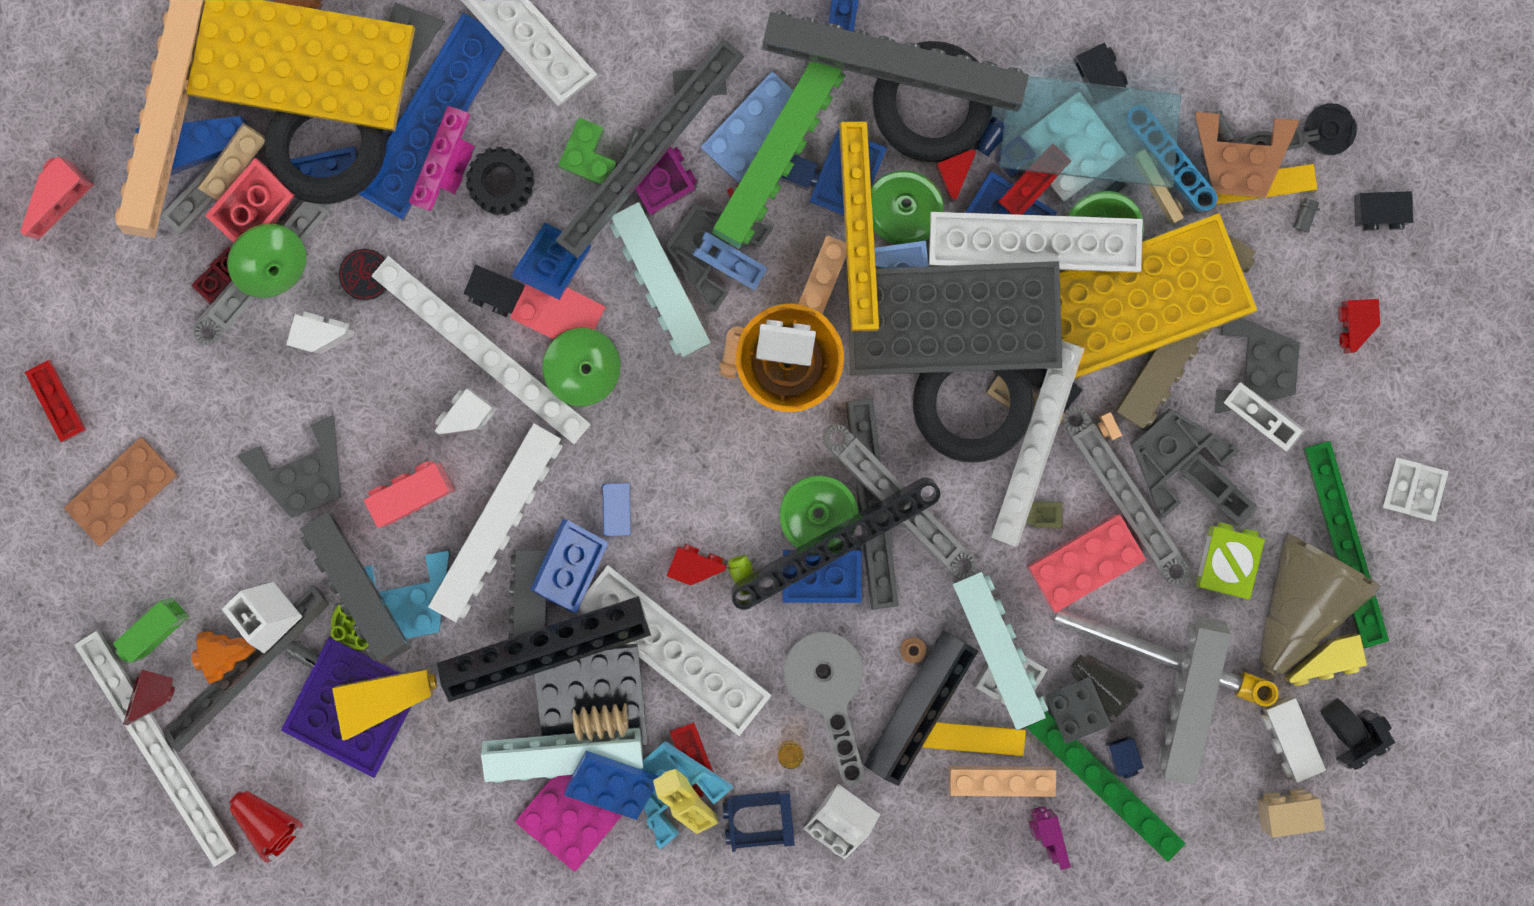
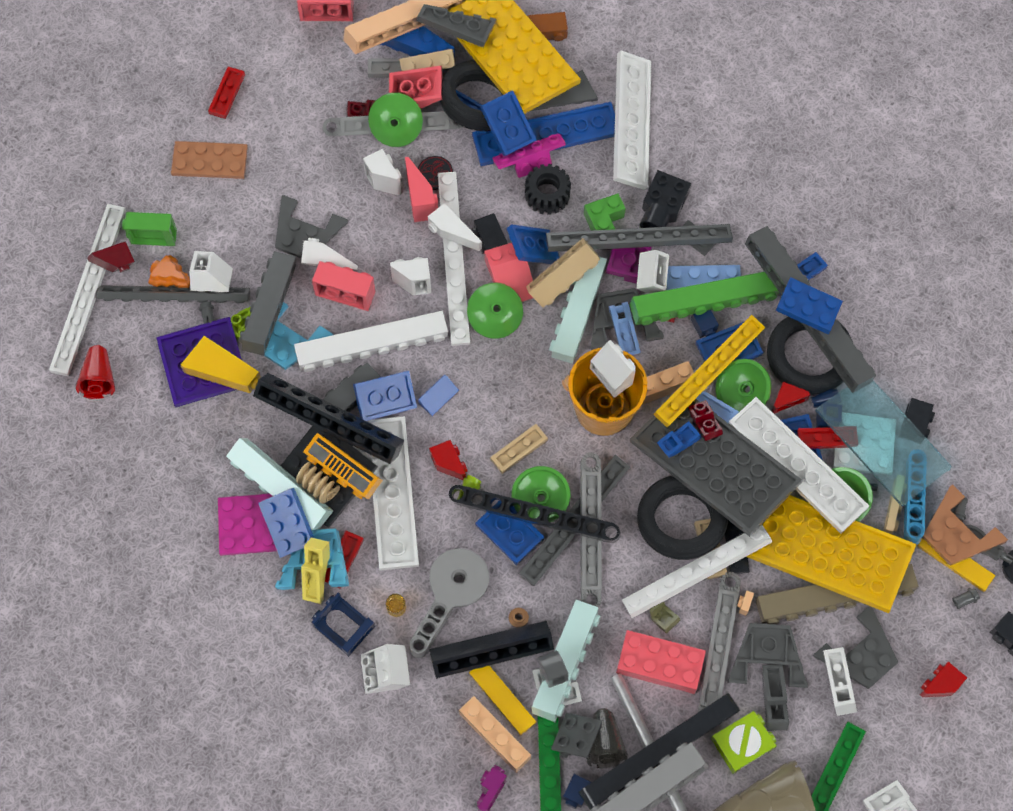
camera: 45 degrees right, 20 degrees down
(233, 88) = (469, 28): none -> dark grey wing
(352, 483) = (315, 252): none -> white slope
(384, 321) = (421, 193): none -> coral slope
(392, 155) = (508, 123): none -> blue plate
(448, 327) = (450, 226): none -> white slope
(608, 683) = (343, 466): none -> brick
(613, 264) = (563, 273): none -> tan brick
(631, 78) = (664, 200): none -> black brick
(702, 175) = (652, 271): none -> white slope
(748, 486) = (519, 448): none -> tan plate
(896, 64) = (809, 305): none -> blue plate
(901, 332) = (679, 440): none -> blue slope
(906, 286) = (705, 420): none -> dark red slope
(1006, 683) = (552, 669): none -> dark grey brick
(1167, 650) = (648, 757): none -> black beam

